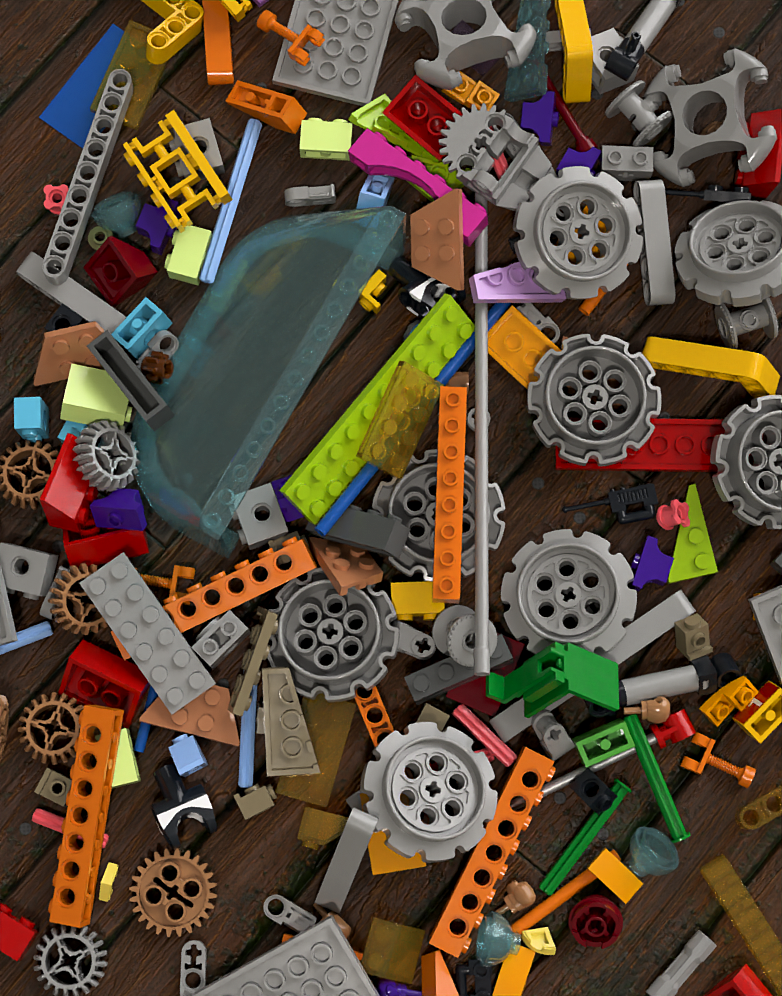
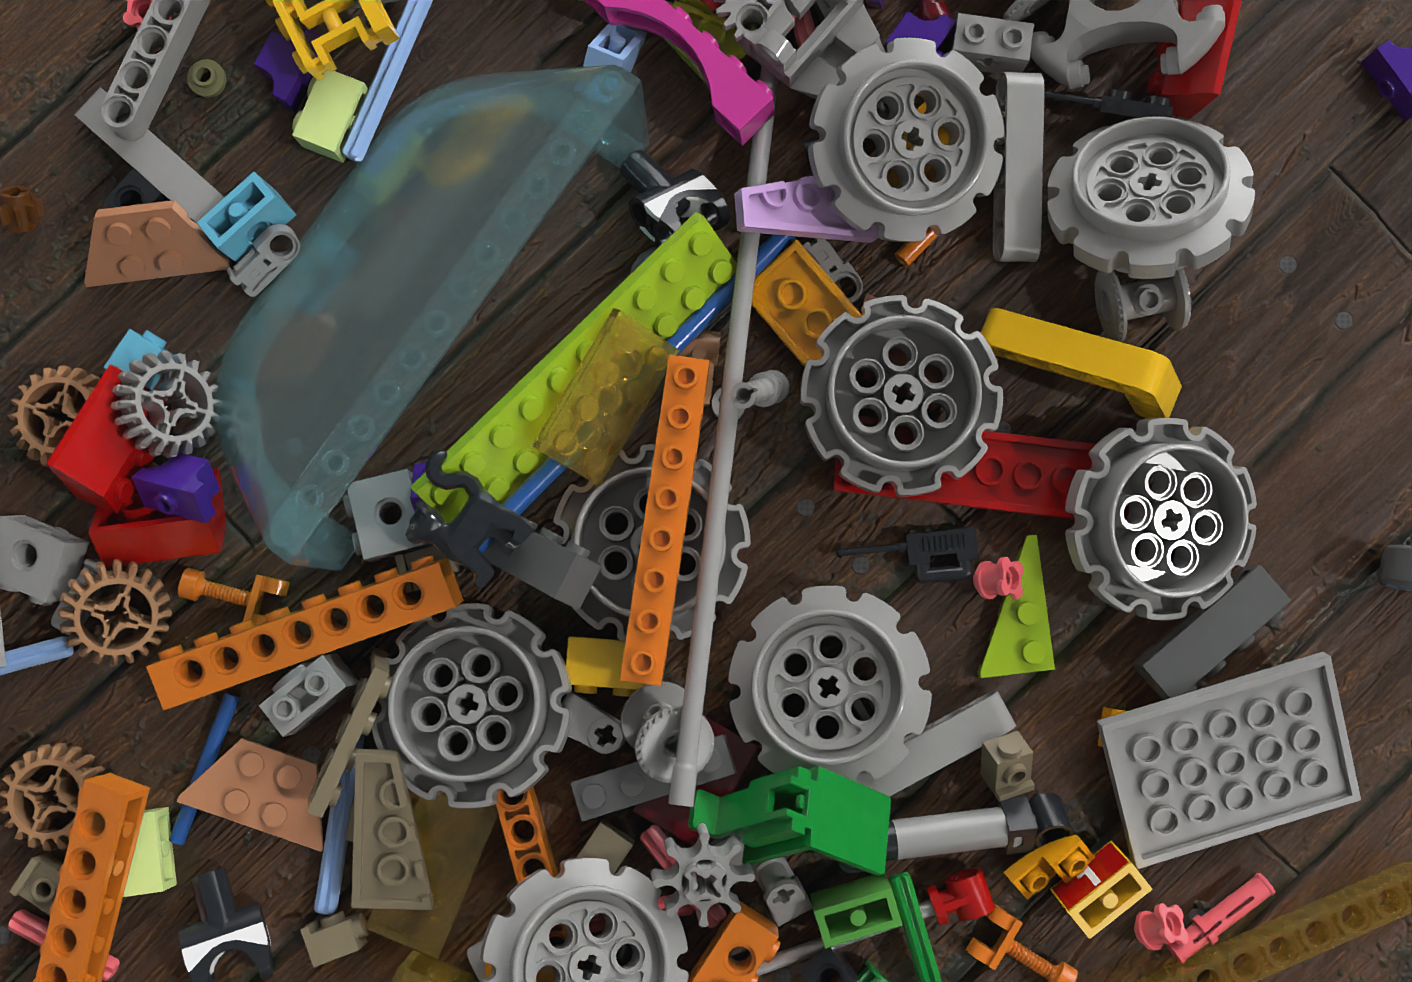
camera: 10 degrees right, 5 degrees up
(31, 418) = (67, 335): medium azure brick -> none
(93, 398) = (167, 313): yellowish green brick -> none
(104, 680) = (136, 737): red slope -> none
(118, 213) = (232, 43): clear light blue piece -> none
(119, 270) = (227, 128): dark red slope -> none
(130, 380) = (211, 295): dark grey brick -> none
(147, 633) = (196, 676): light grey plate -> none
(157, 367) = (259, 278): reddish brown gear -> none
(187, 755) = (241, 861): light blue slope -> none
(309, 195) = (512, 46): light grey piece -> none
(325, 509) = (474, 524): none -> black animal
(345, 564) = (505, 612): nougat wing -> none
(374, 287) = (594, 192): yellow bracket -> none
(439, 240) = (697, 129): nougat wing -> none
(495, 735) = (706, 862): none -> light grey gear
(501, 405) = (762, 389): none -> light grey pin
(650, 565) = (956, 649): dark purple brick -> none
(653, 710) = (935, 873): medium nougat piece -> none

